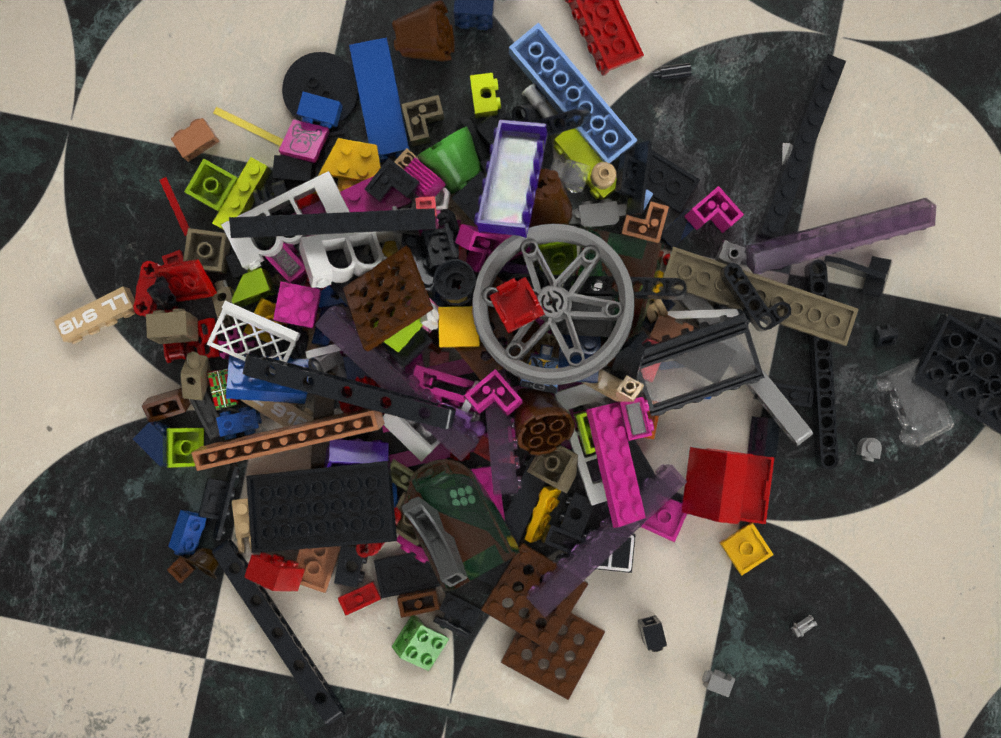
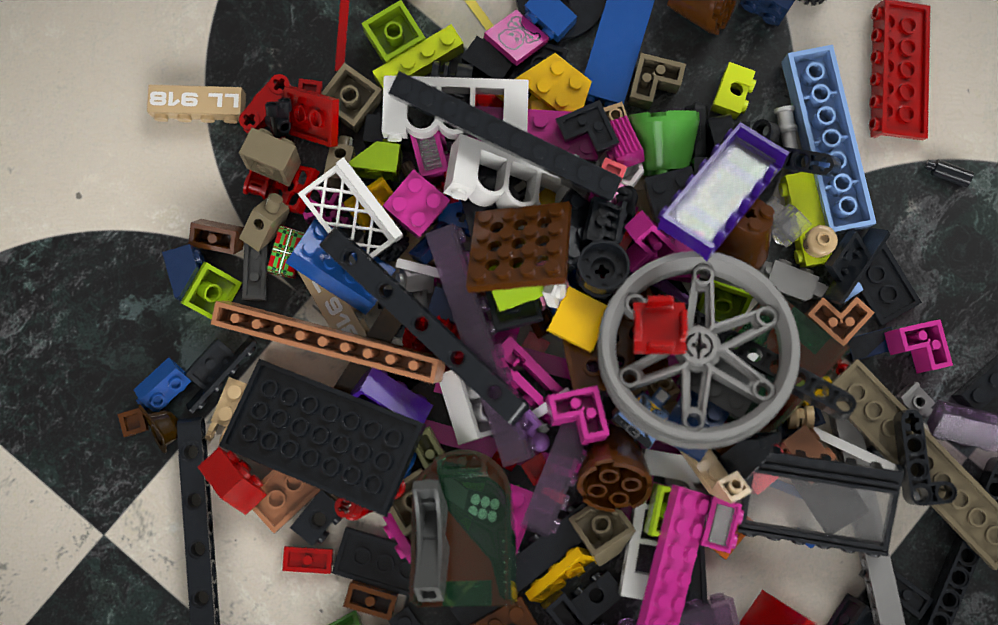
camera: 25 degrees right, 5 degrees down
(244, 421) = (290, 299): blue brick -> none

